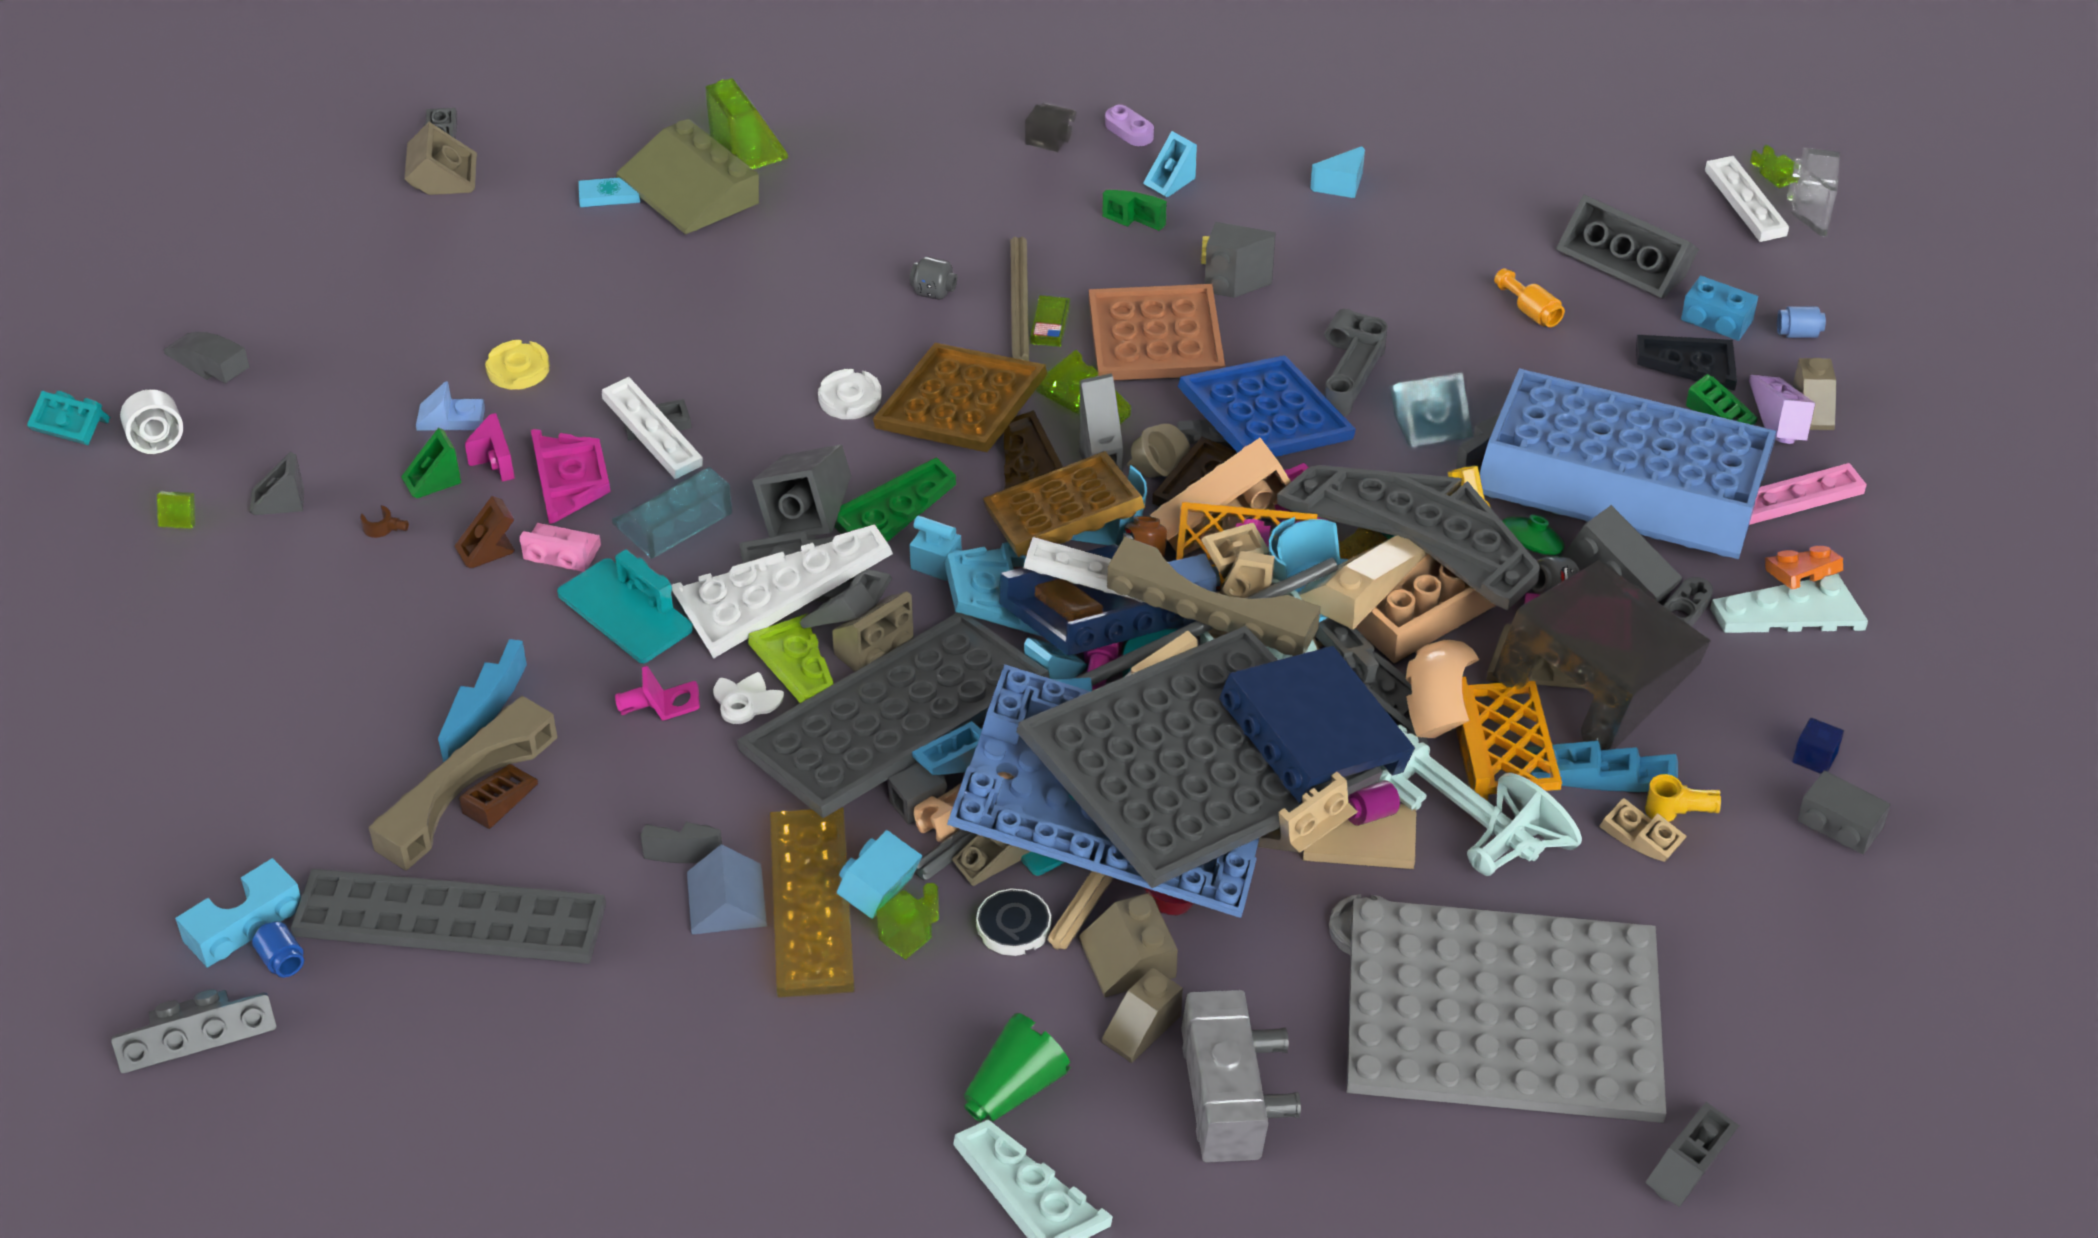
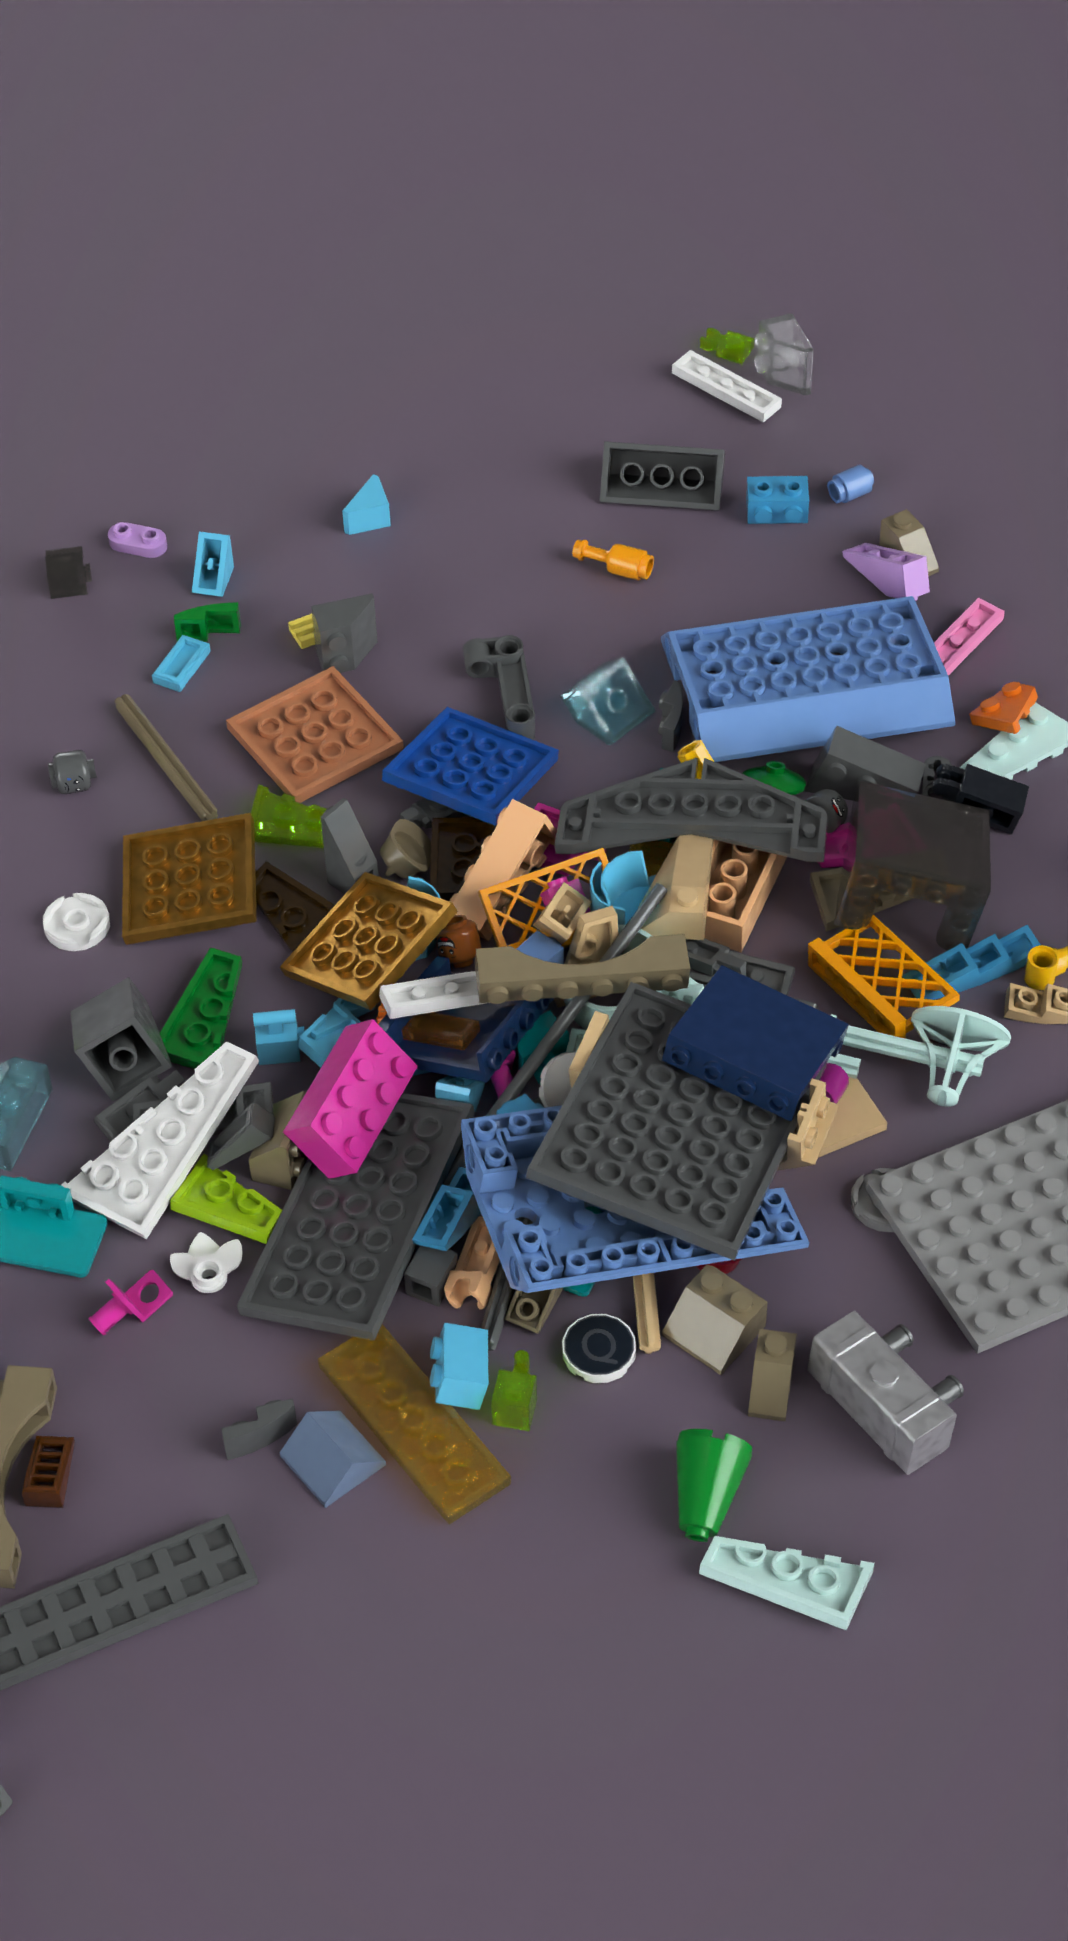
camera: 30 degrees left, 5 degrees up
(942, 615) = (350, 1099): none -> dark pink brick
(1050, 321) = (209, 766): clear neon green tile -> none
(1090, 233) = (181, 663): none -> medium azure tile
(1437, 687) = (802, 949): light nougat brick -> none
(1689, 357) = (784, 557): black wing -> none
(1713, 398) = (828, 589): green slope -> none
(1732, 636) = (983, 790): none -> black hinge

